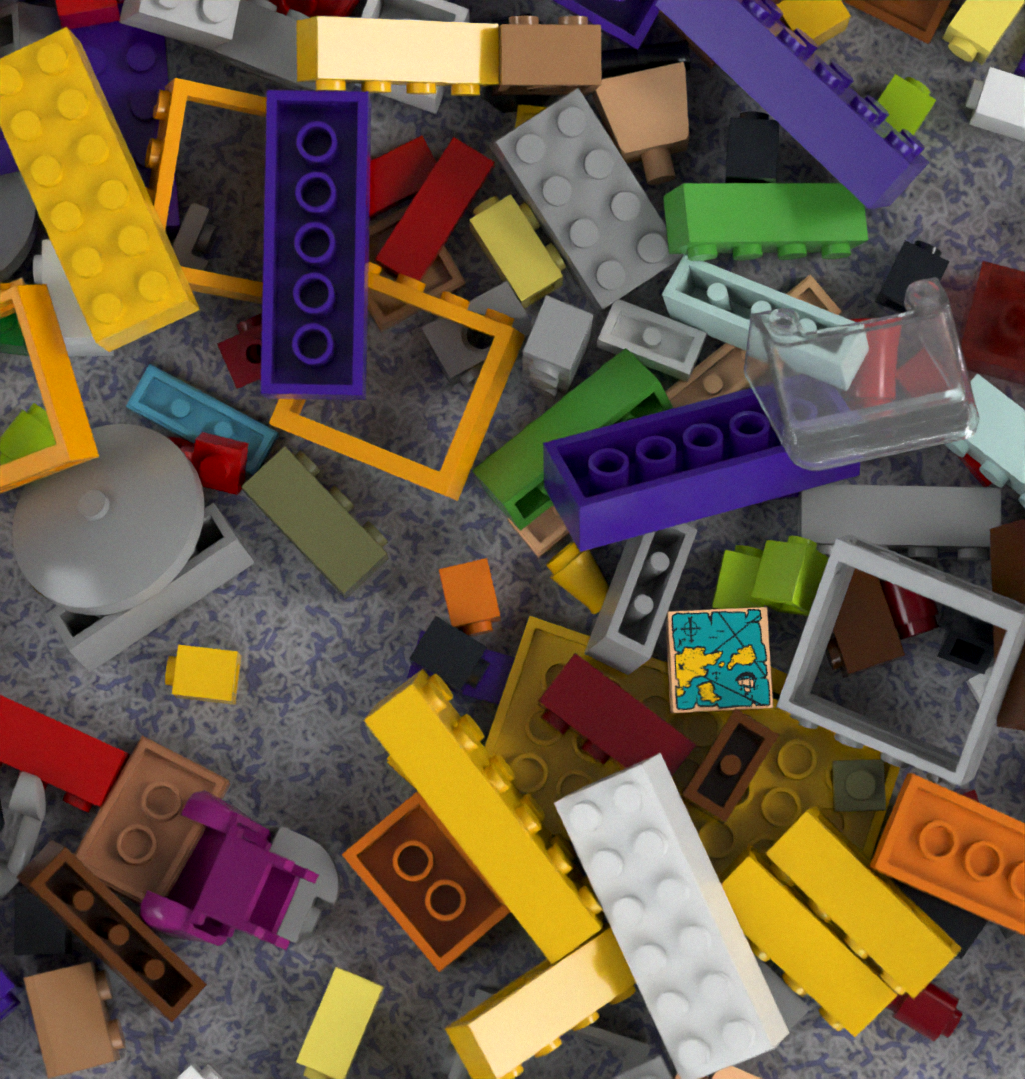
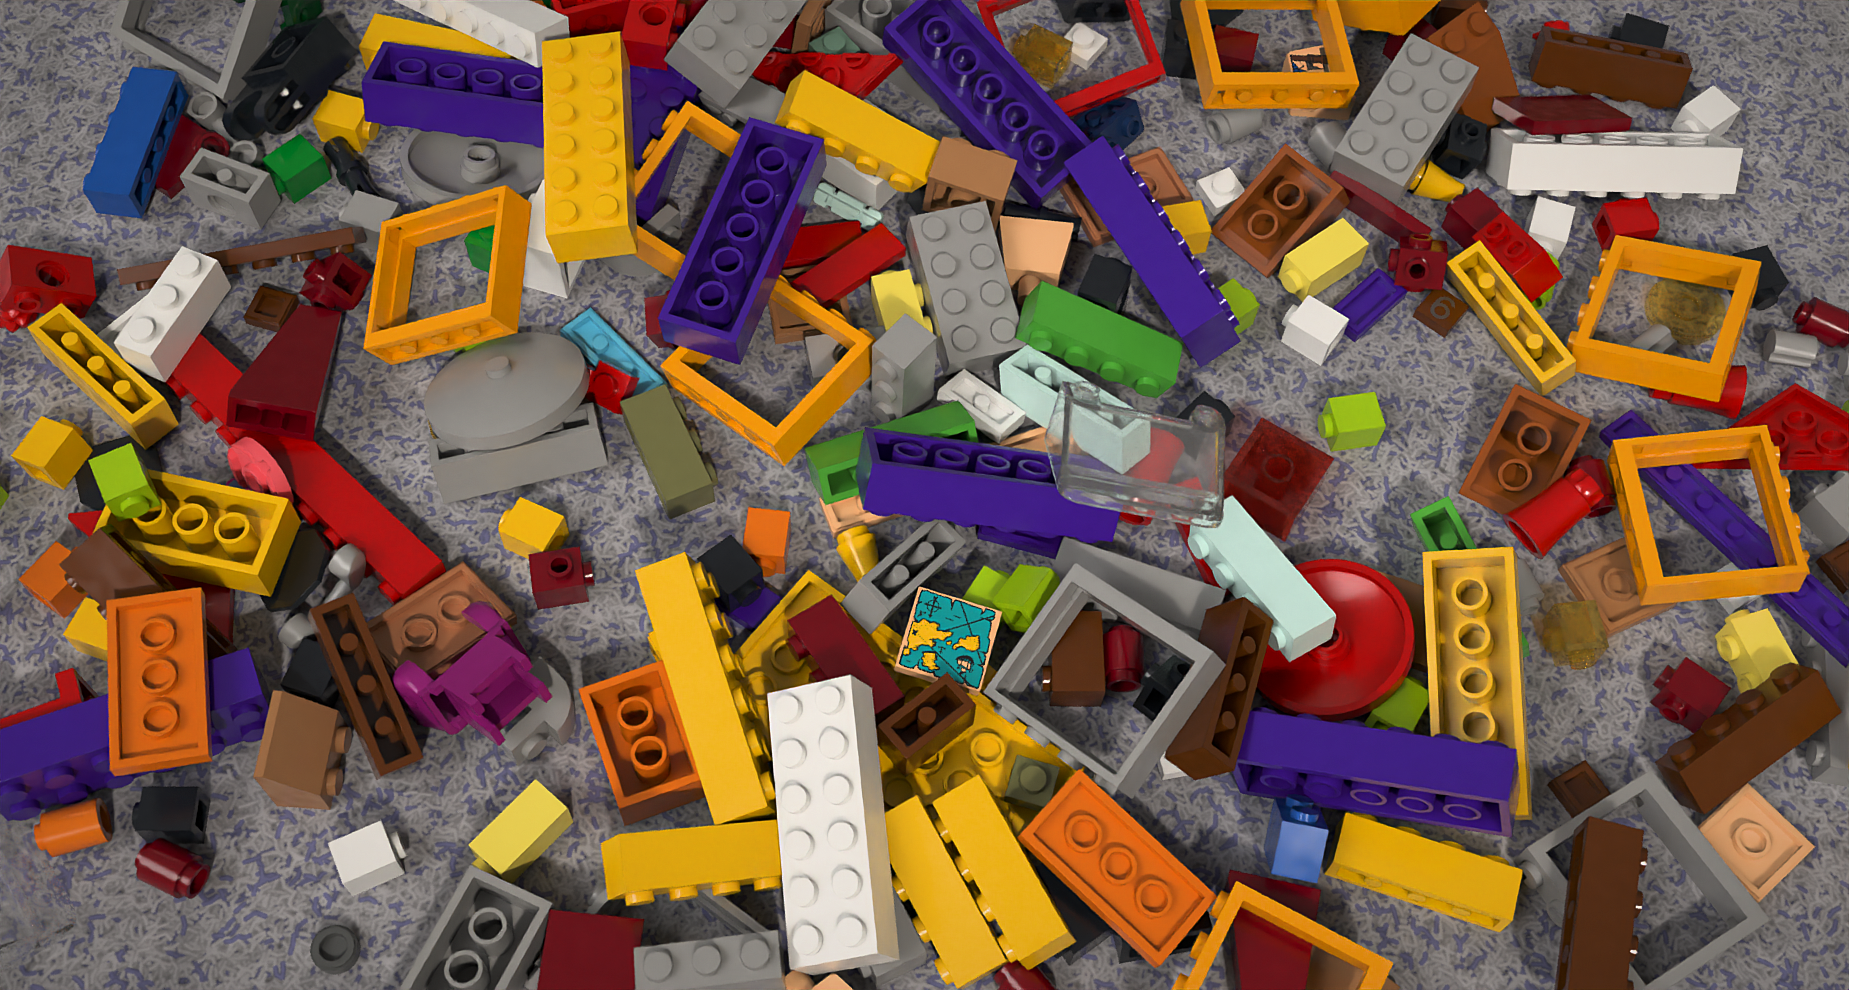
camera: 15 degrees right, 20 degrees down
(259, 718) = (560, 577): none -> dark red brick
(409, 120) = (847, 206): none -> light aqua axle

